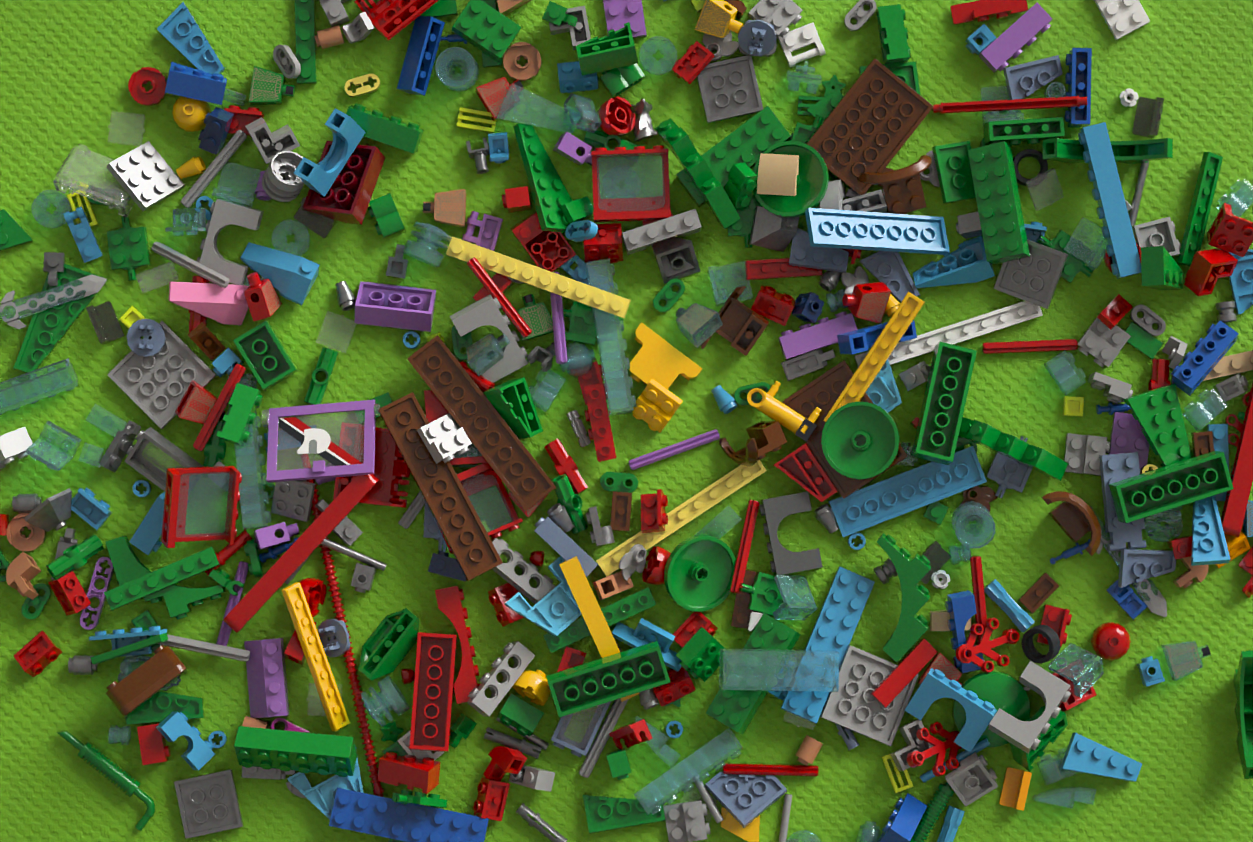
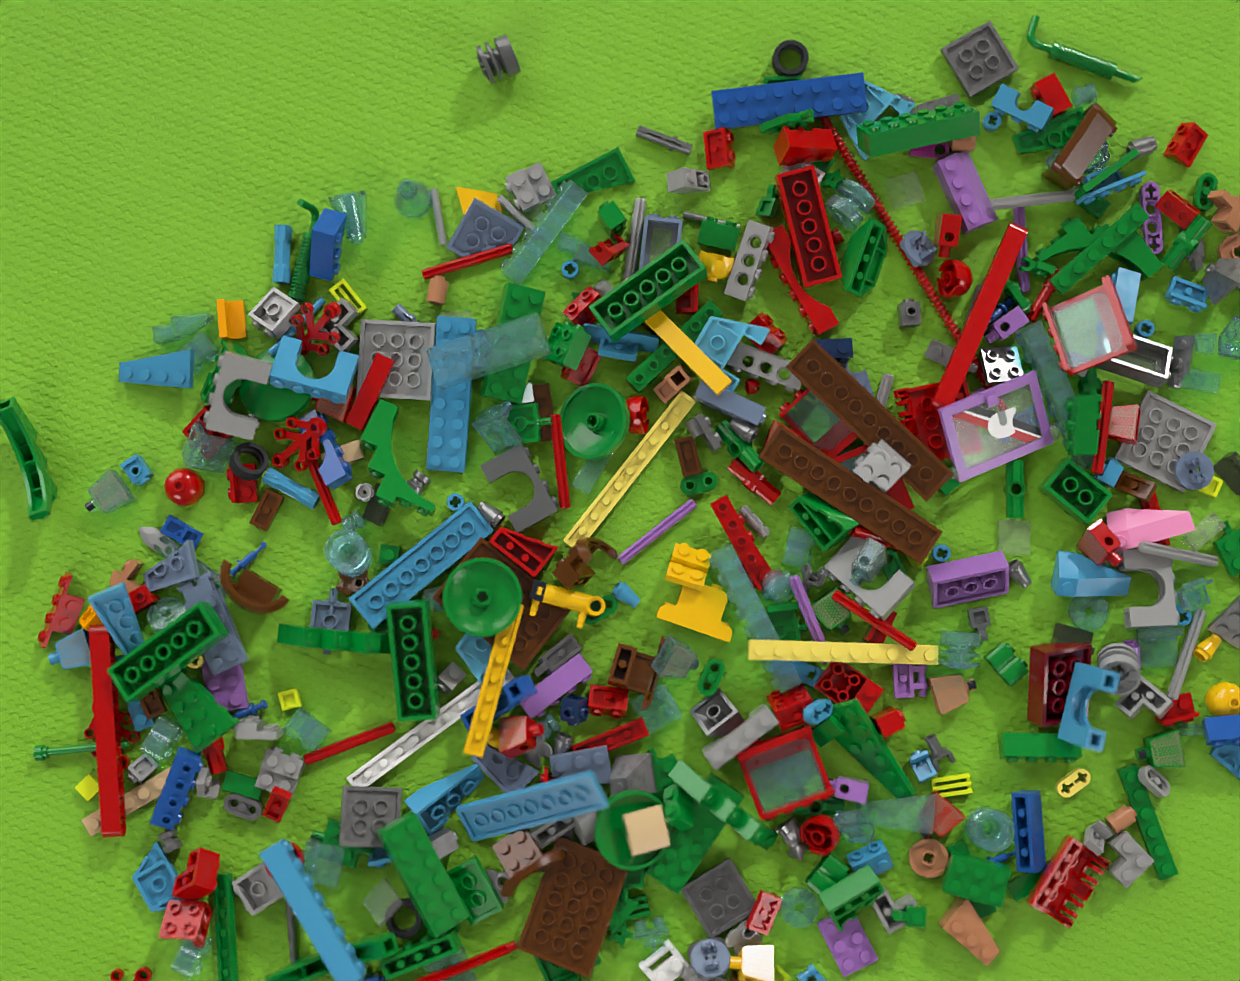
camera: 160 degrees right, 0 degrees up
(216, 130) = (1199, 691): dark blue brick -> none
(315, 656) = (931, 223): yellow tile -> none
(354, 554) = (925, 332): flat silver bar -> none
(504, 760) = (719, 185): red brick -> none
(513, 742) = (716, 207): dark grey pin -> none
(633, 561) = (661, 411): light grey plate -> none
(653, 512) = (657, 465): red bracket -> none
(1083, 453) = (265, 657): light grey plate -> none
(1160, 269) = (243, 861): green wedge -> none

